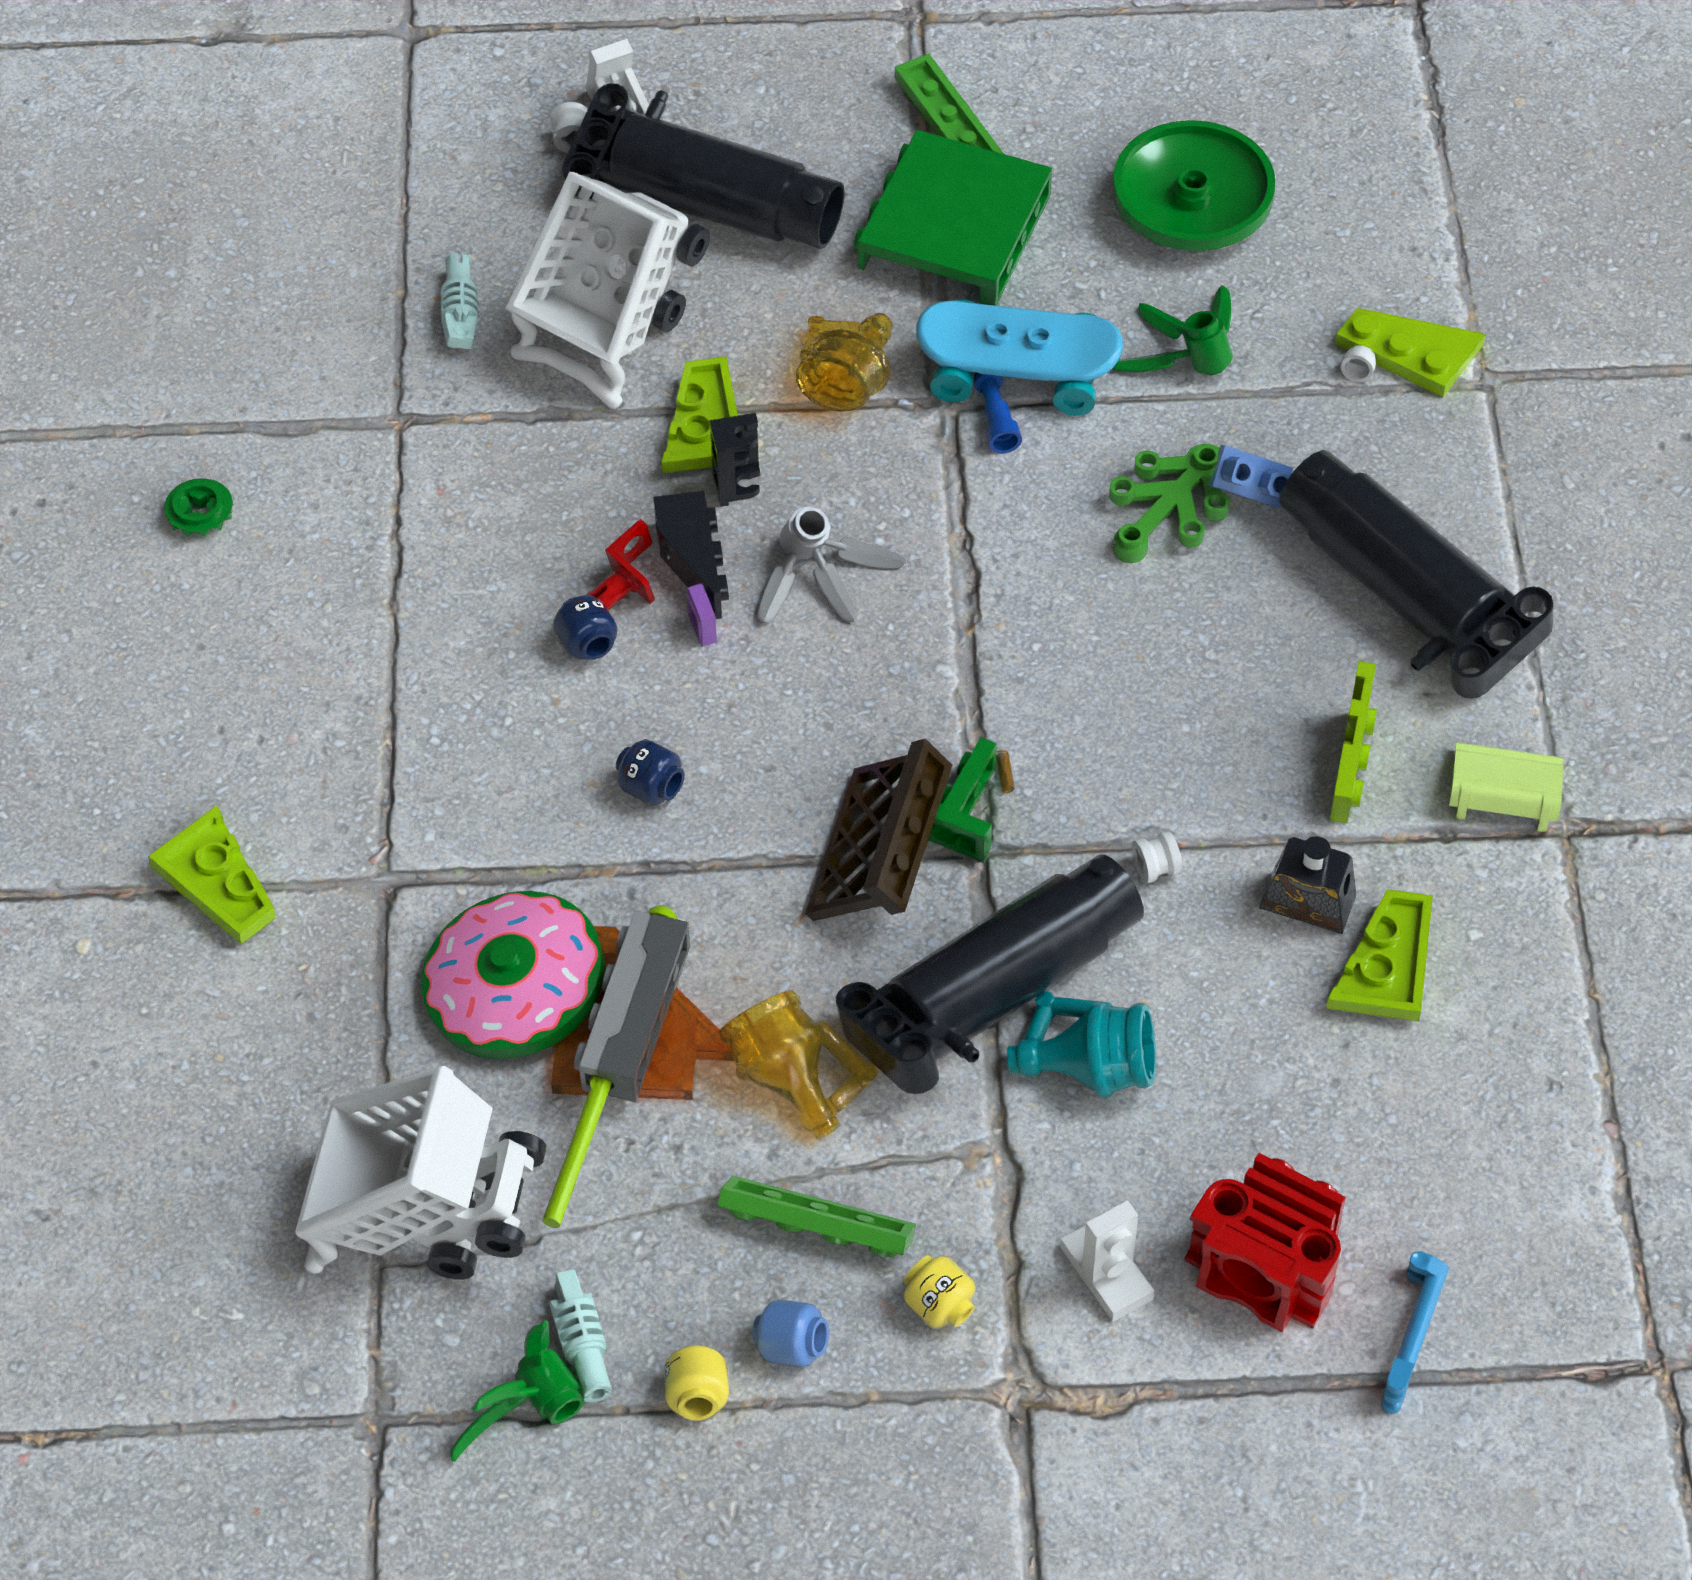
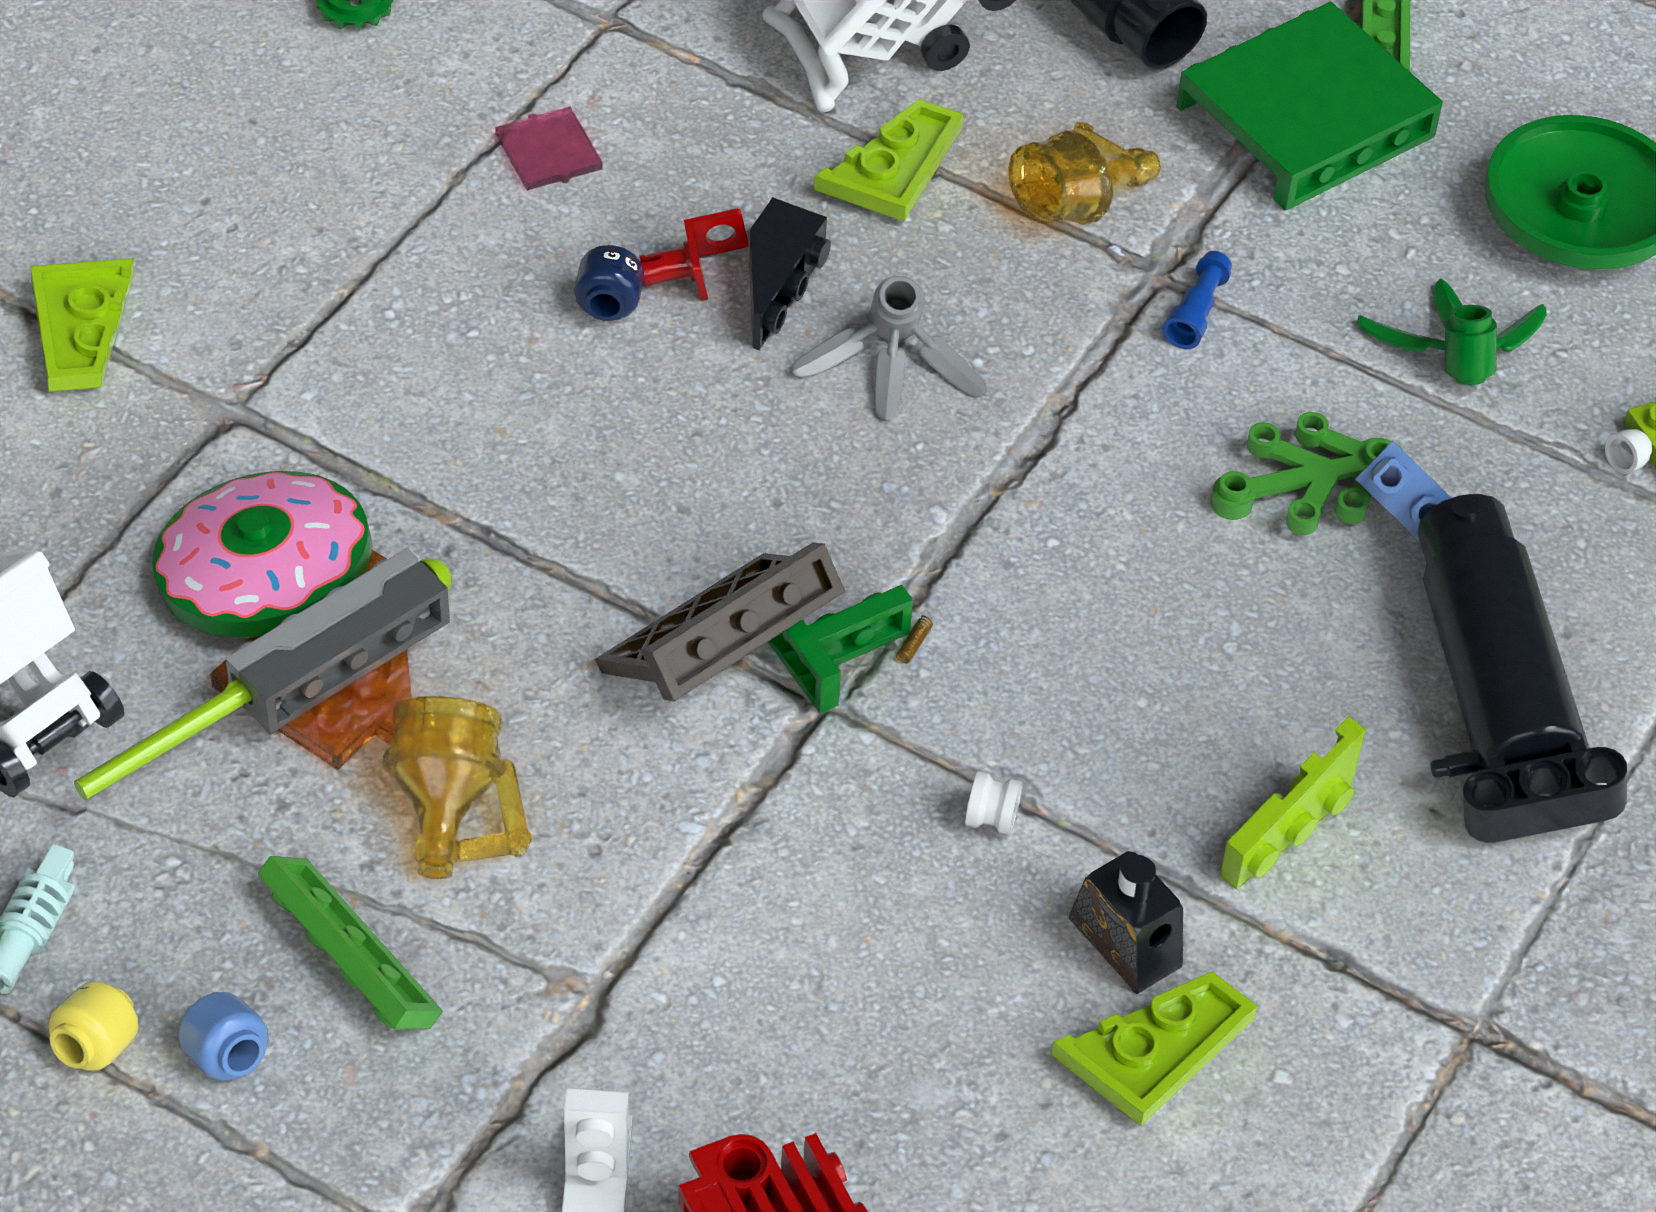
camera: 30 degrees right, 5 degrees down
(442, 546) = (548, 148): none -> clear pink piece
(650, 772) = (553, 443): dark blue head -> none
(701, 615) = (733, 331): medium lavender tile -> none
(734, 456) = (884, 202): black hinge -> none
(939, 1291) = (400, 1086): light yellow head -> none
(987, 973) = (717, 808): black piece -> none
(1018, 345) = (1263, 244): medium azure piece -> none
(1102, 1049) = (767, 951): teal piece -> none
(1507, 783) = (1439, 941): yellowish green piece -> none

